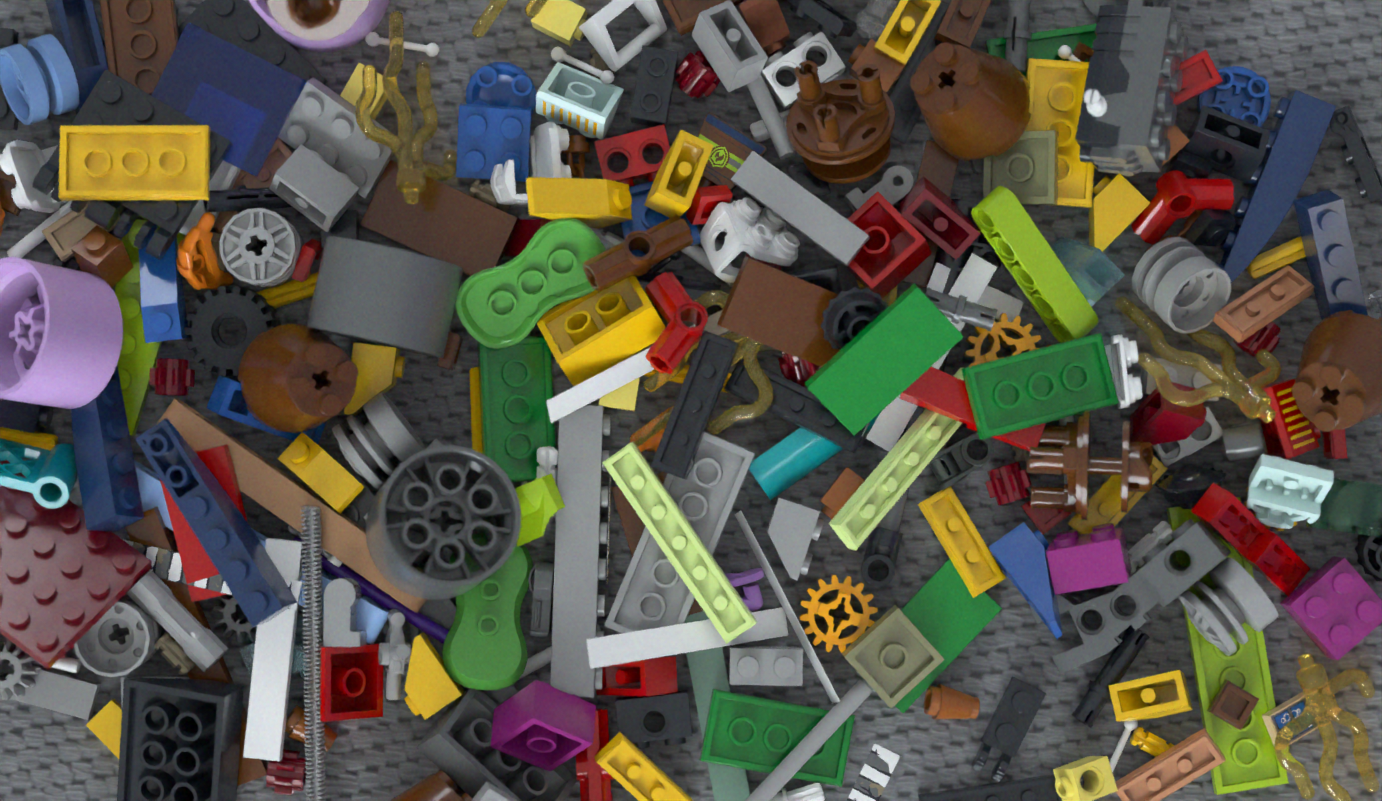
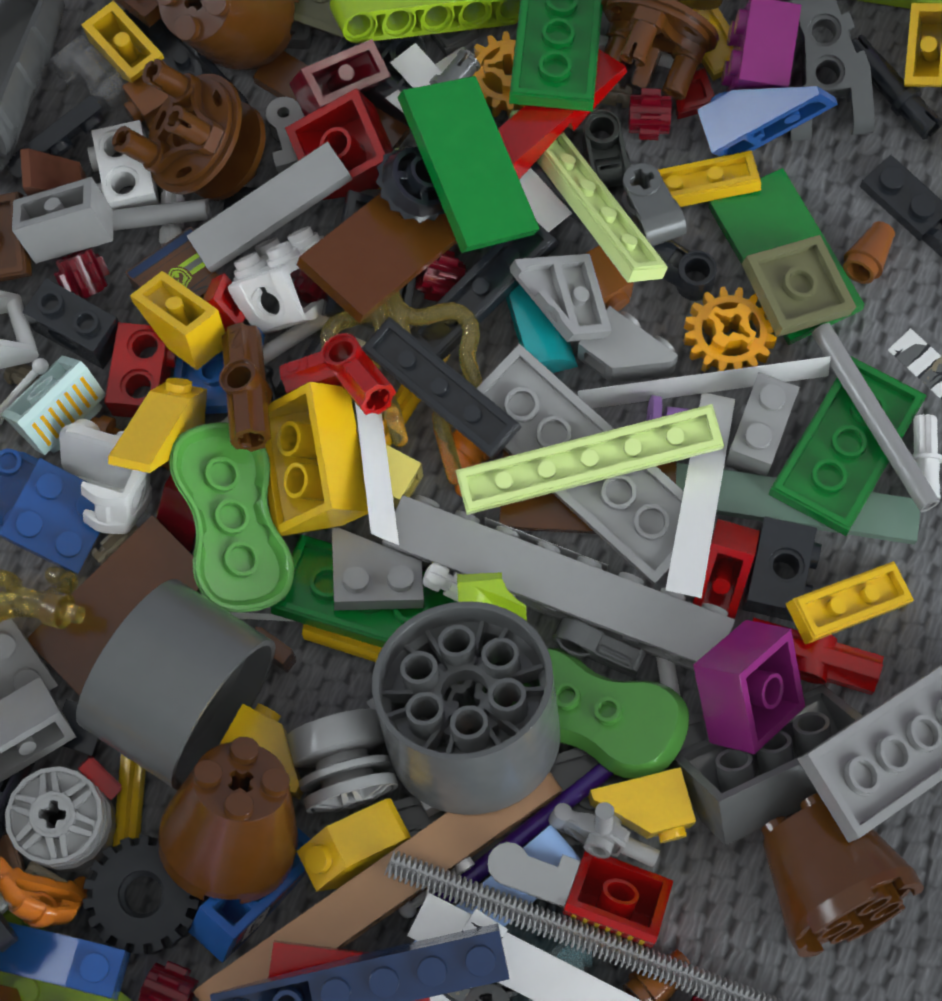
camera: 65 degrees left, 15 degrees down
(527, 408) = (373, 575): none -> light grey wing
(811, 475) = (566, 294): none -> light grey wing
(910, 520) = (651, 205): none -> dark grey piece

